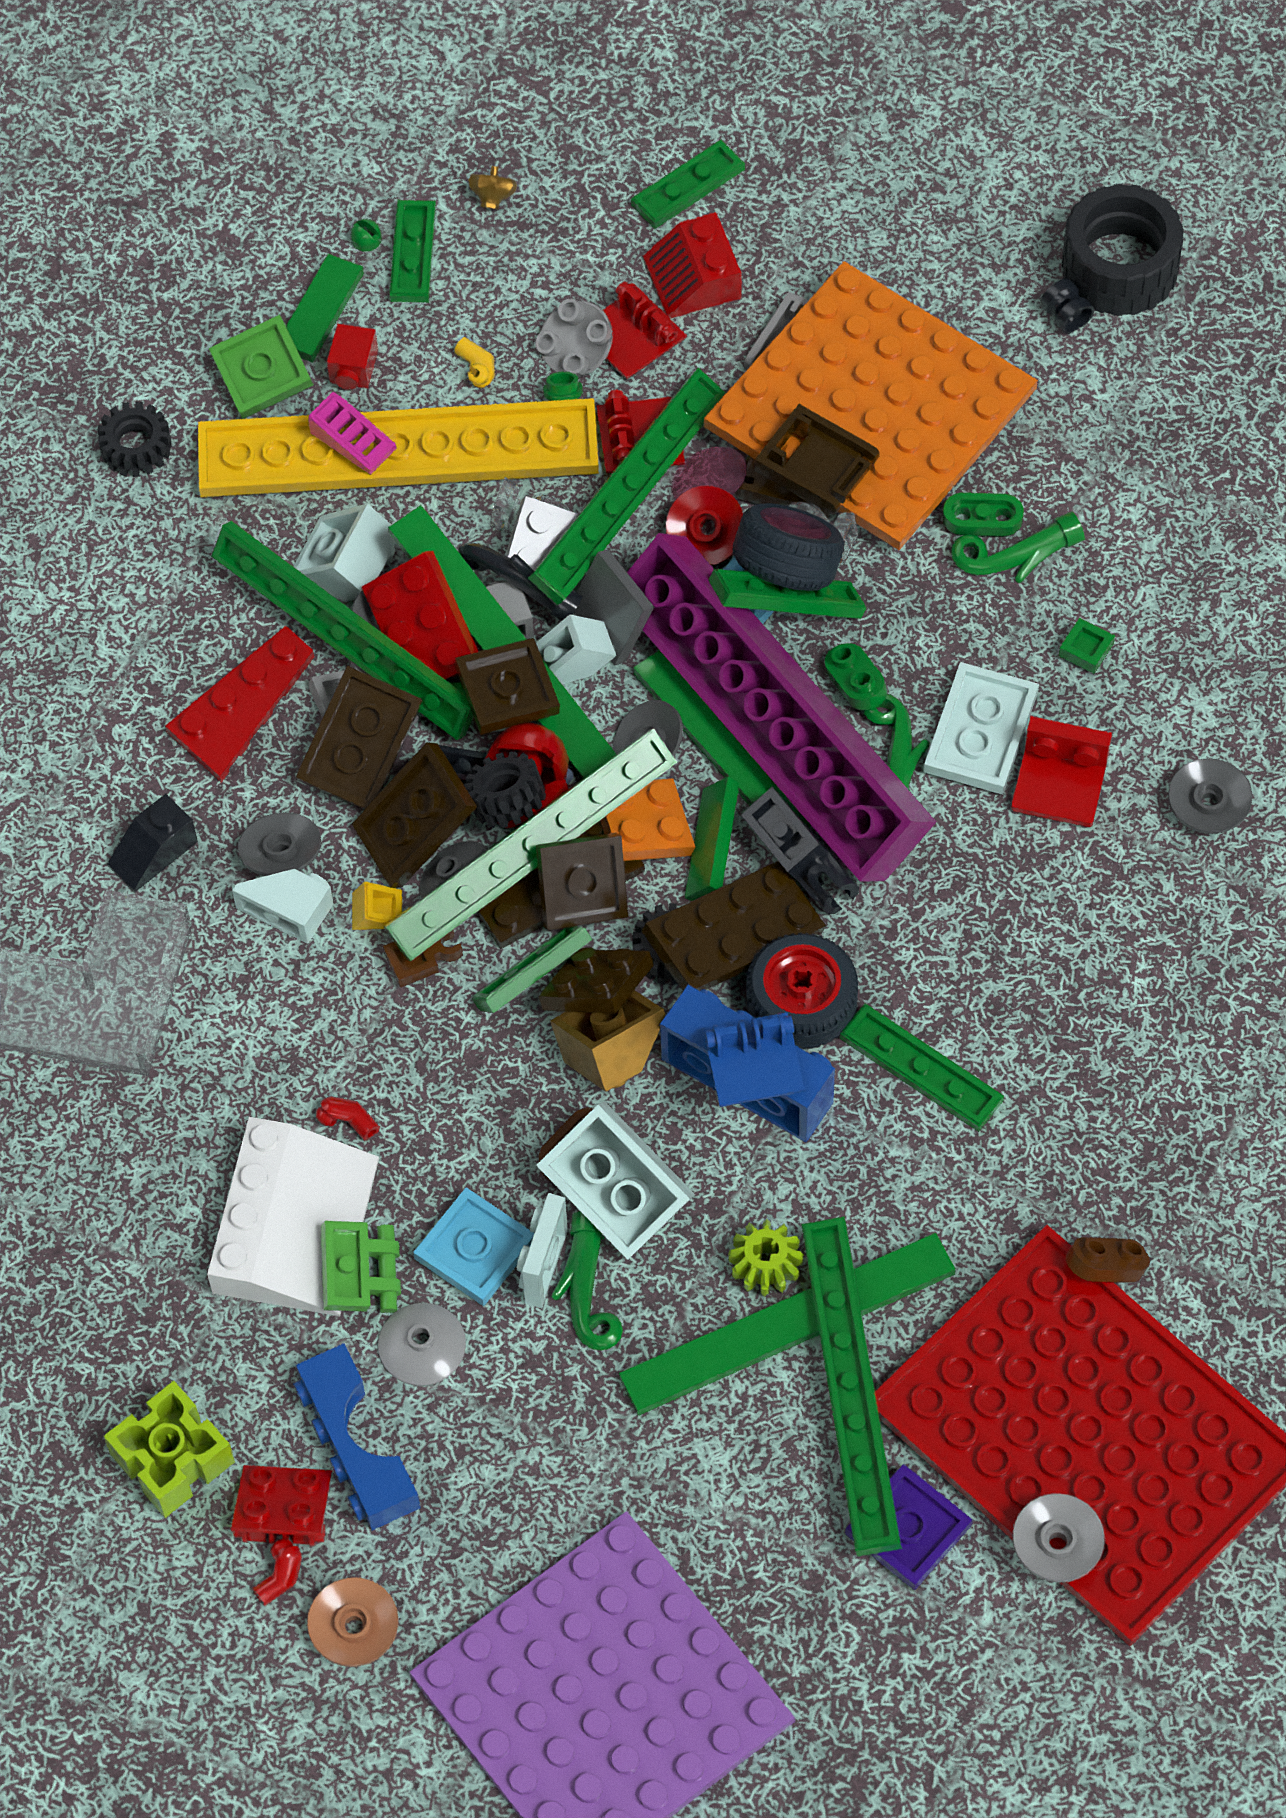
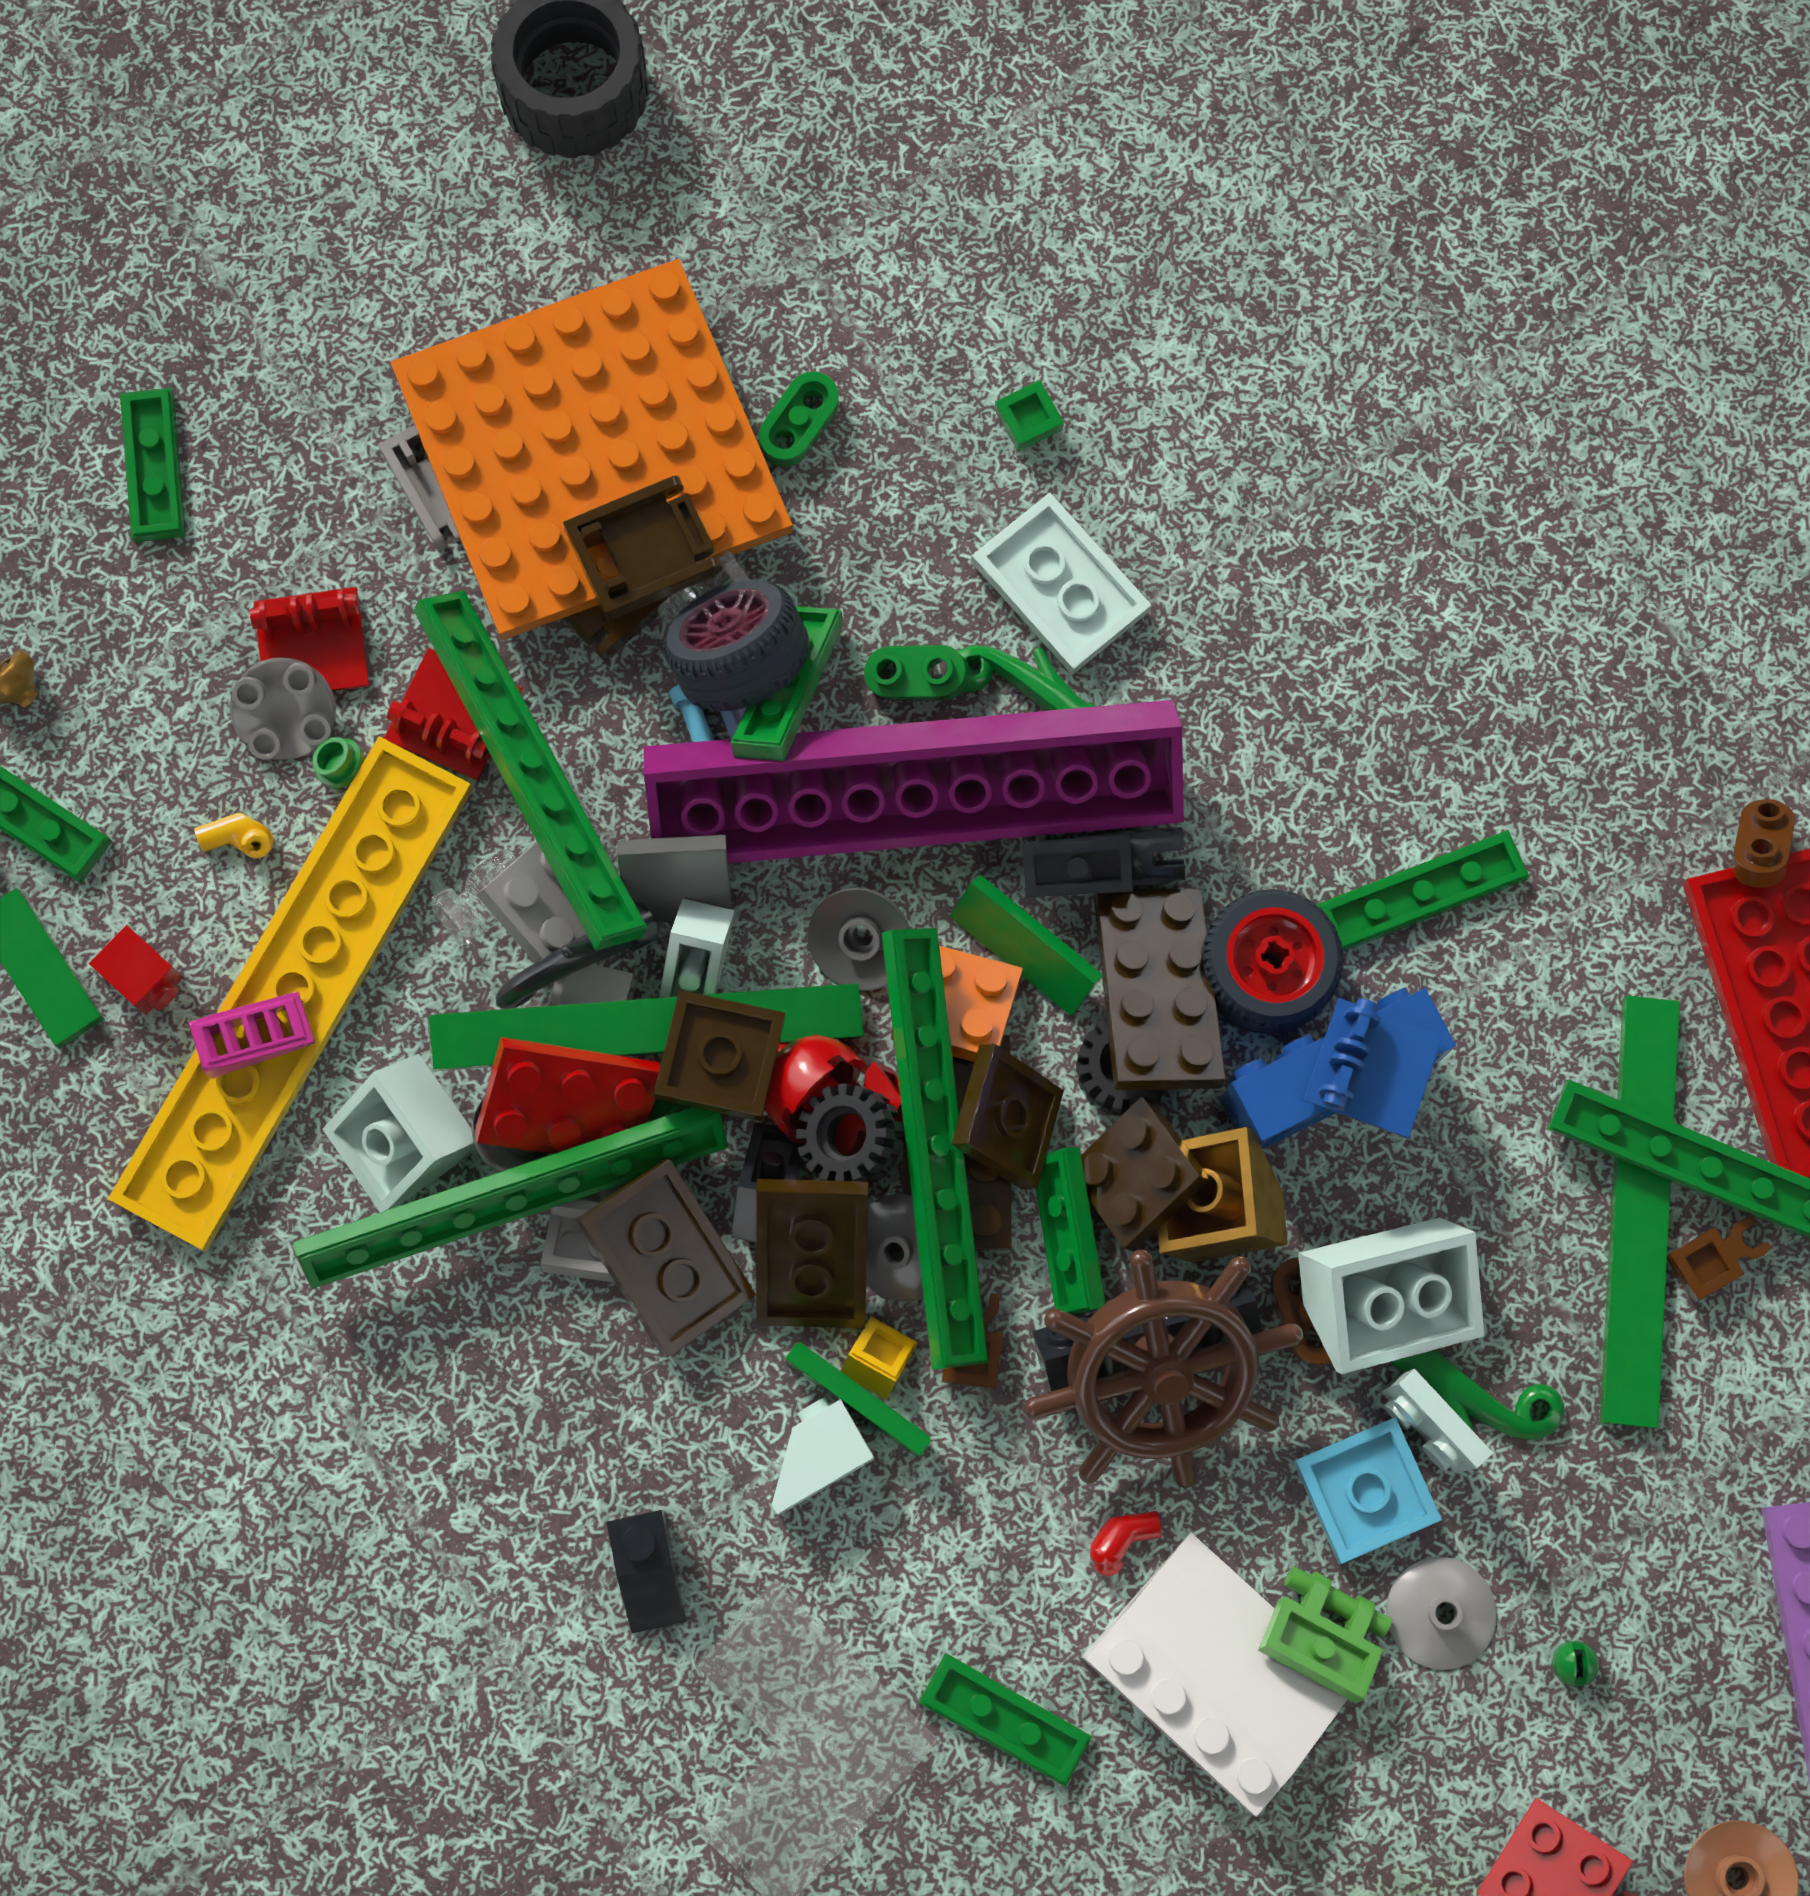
camera: 65 degrees left, 15 degrees up
(132, 420) = (55, 1263): black tyre -> none
(184, 1110) = (1005, 1719): none -> green tile
(230, 713) = (520, 1374): red wing -> none
(261, 366) = (80, 1083): bright green plate -> none
(279, 843) = (715, 1420): dark grey dish -> none
(338, 905) = (858, 1399): none -> green tile
(378, 1482) = (1594, 1758): blue arch -> none
(441, 1451) = (1567, 1666): none -> green hinge
(476, 1047) = (1155, 1346): none -> reddish brown brick
(694, 267) = (275, 524): red slope -> none
(703, 505) = (653, 717): red dish -> none
(706, 729) = (889, 869): green tile -> none
(712, 467) = (562, 674): clear pink piece -> none
(779, 1383) = (1711, 1262): none -> reddish brown plate
(782, 1261) = (1578, 1187): lime gear -> none
(1029, 552) = (874, 402): green plant -> none
(1061, 771) = (1170, 539): red bracket -> none
(1067, 306) = (584, 171): black wheel -> none
(1211, 780) = (1295, 386): dark grey dish -> none

